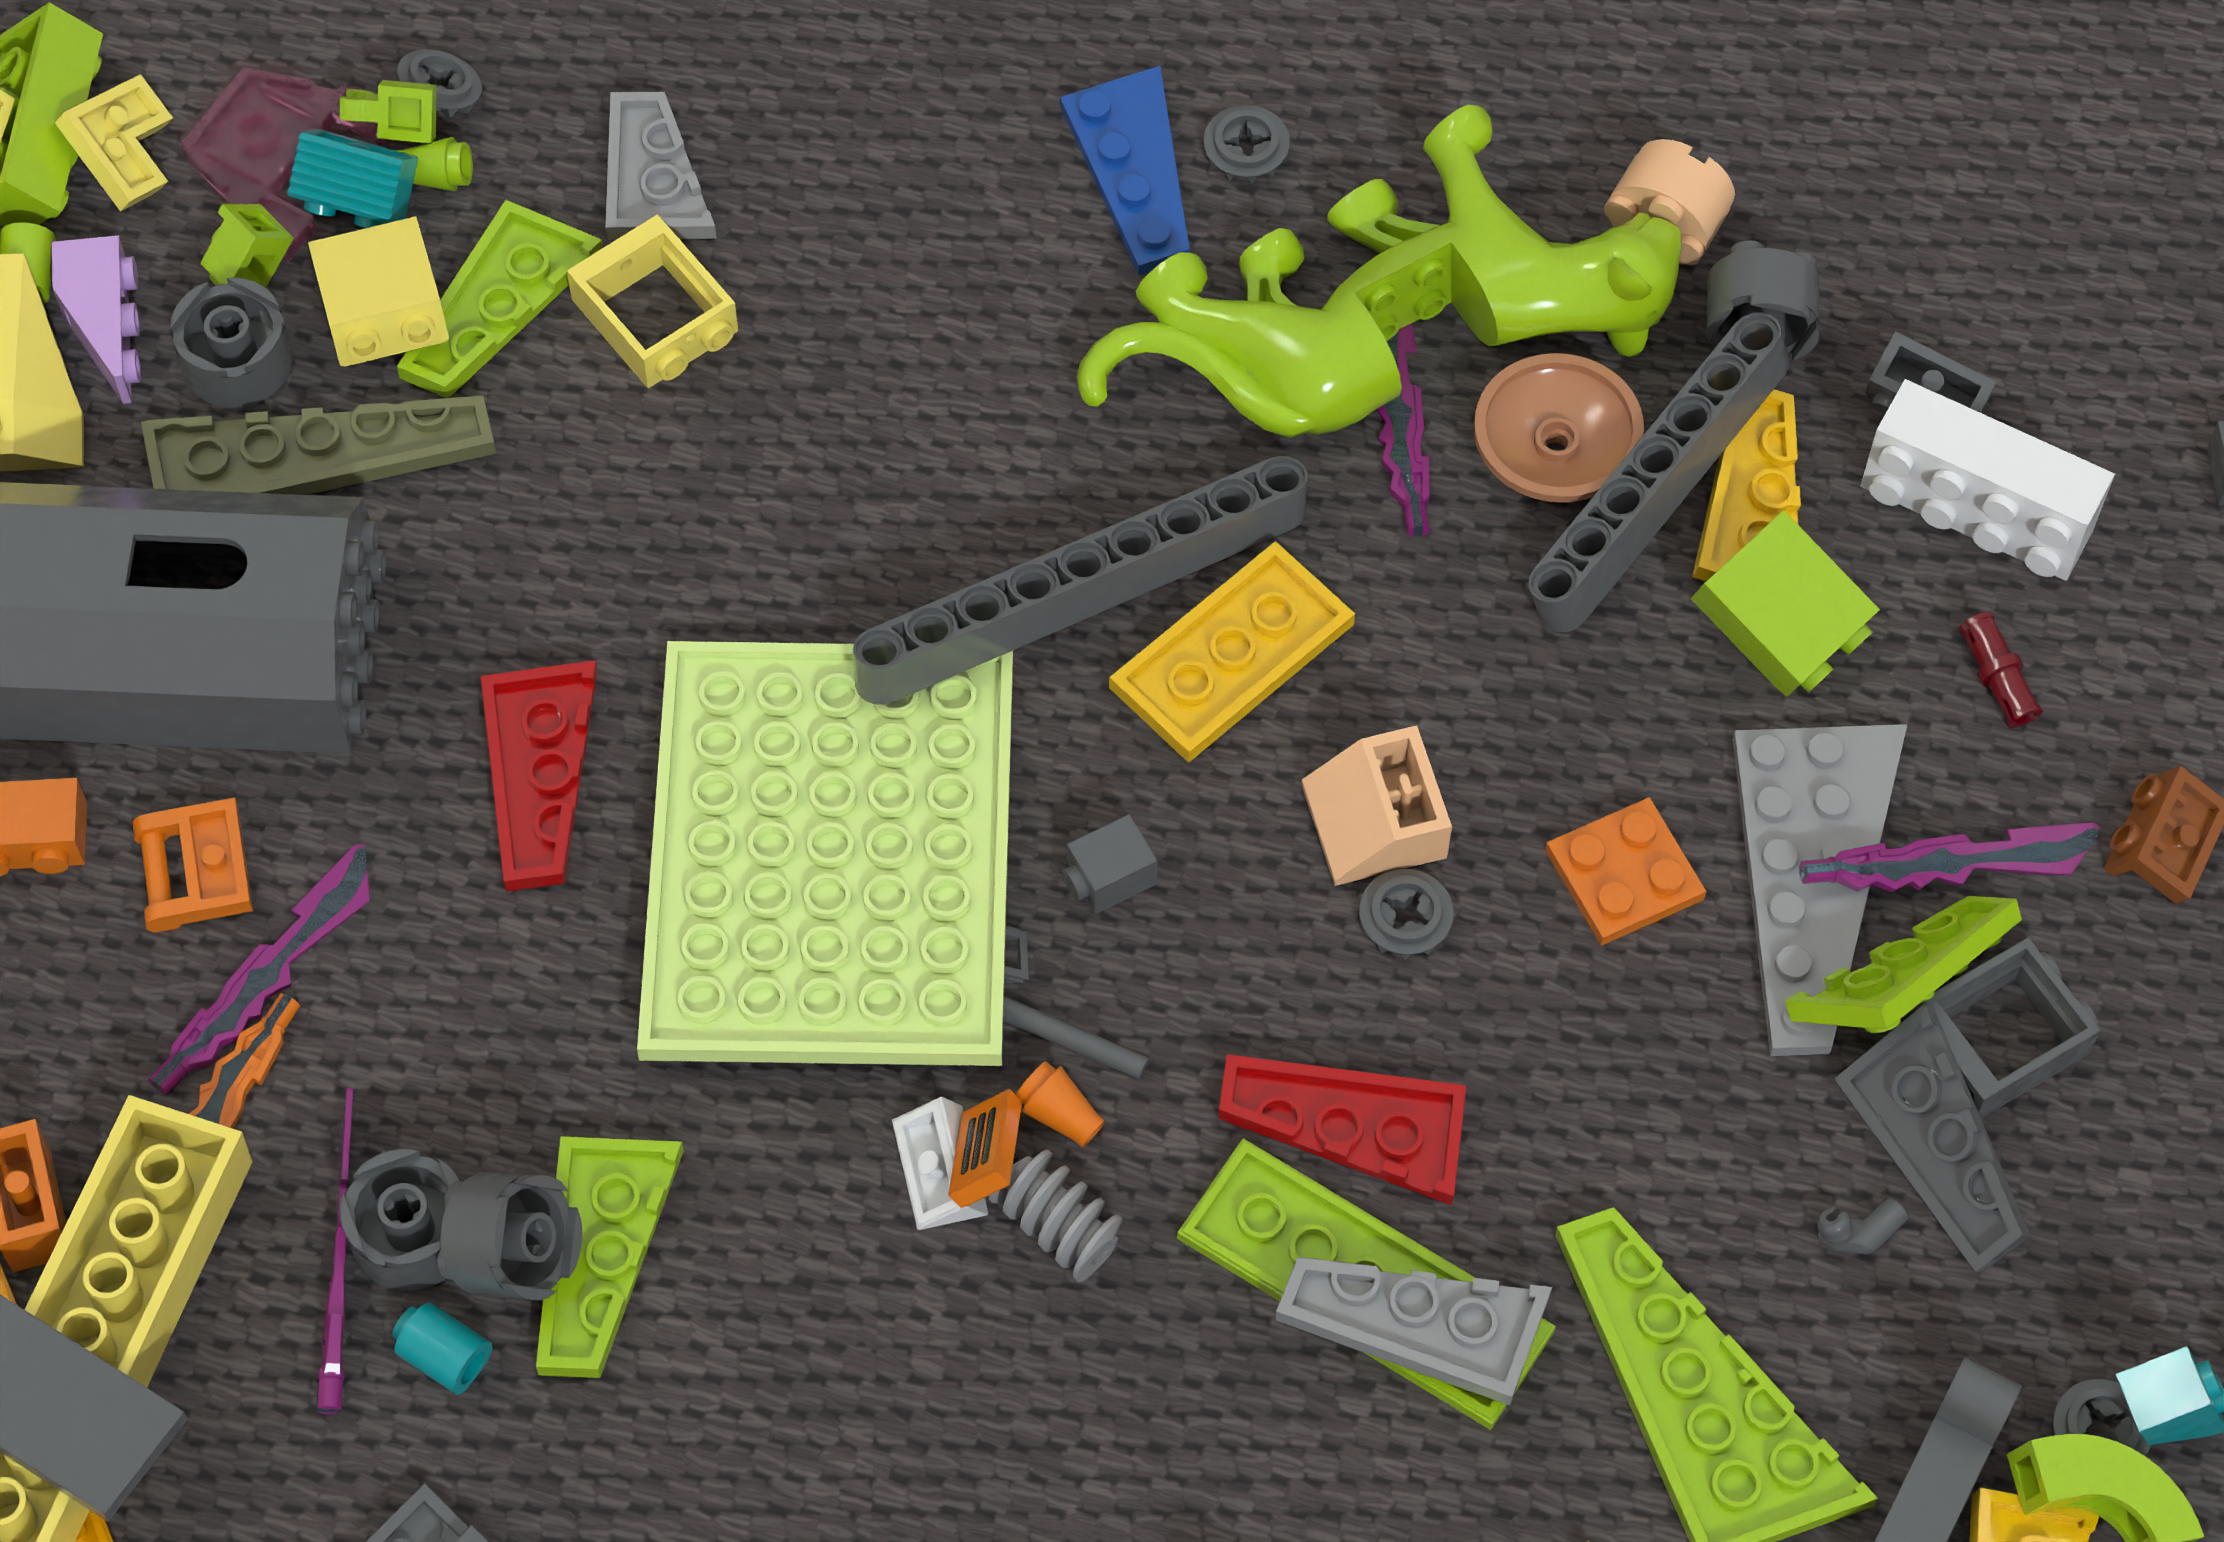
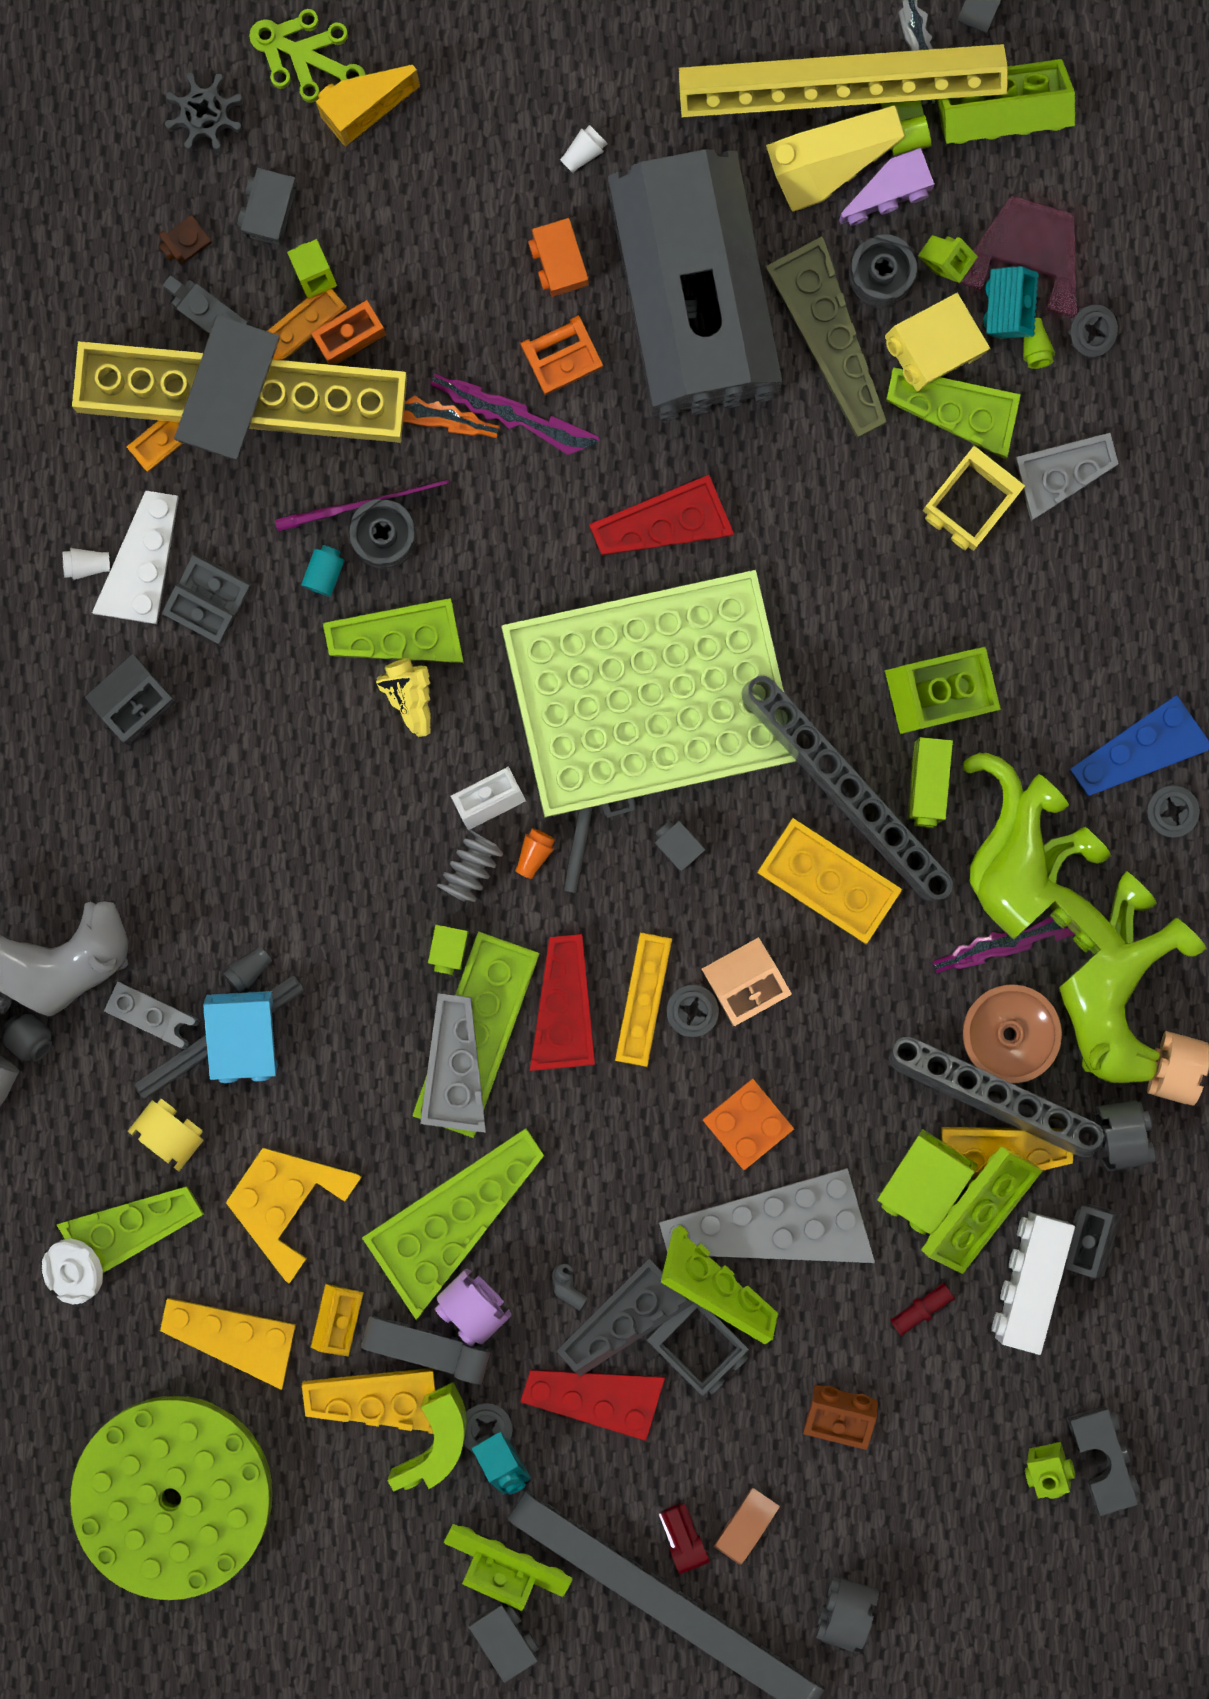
camera: 80 degrees right, 25 degrees up
(108, 135) = (1000, 152): light yellow plate -> none
(401, 108) = (1059, 315): lime plate -> none
(509, 1235) = (378, 590): dark grey brick -> none
(709, 1245) = (409, 693): none -> light yellow rock
(956, 418) = (942, 690): none -> lime slope
(985, 1149) = (494, 821): orange tile -> none
(1103, 450) = (929, 781): none -> lime brick
(1197, 1286) = (448, 949): none -> lime brick
(1367, 989) = (643, 999): none -> yellow tile
(1857, 537) = (981, 1210): none -> lime plate
(1872, 1383) = (472, 1308): none -> lavender brick
(1953, 857) = (815, 1344): magenta sword -> none
(2077, 1215) = (605, 1400): none -> red wing

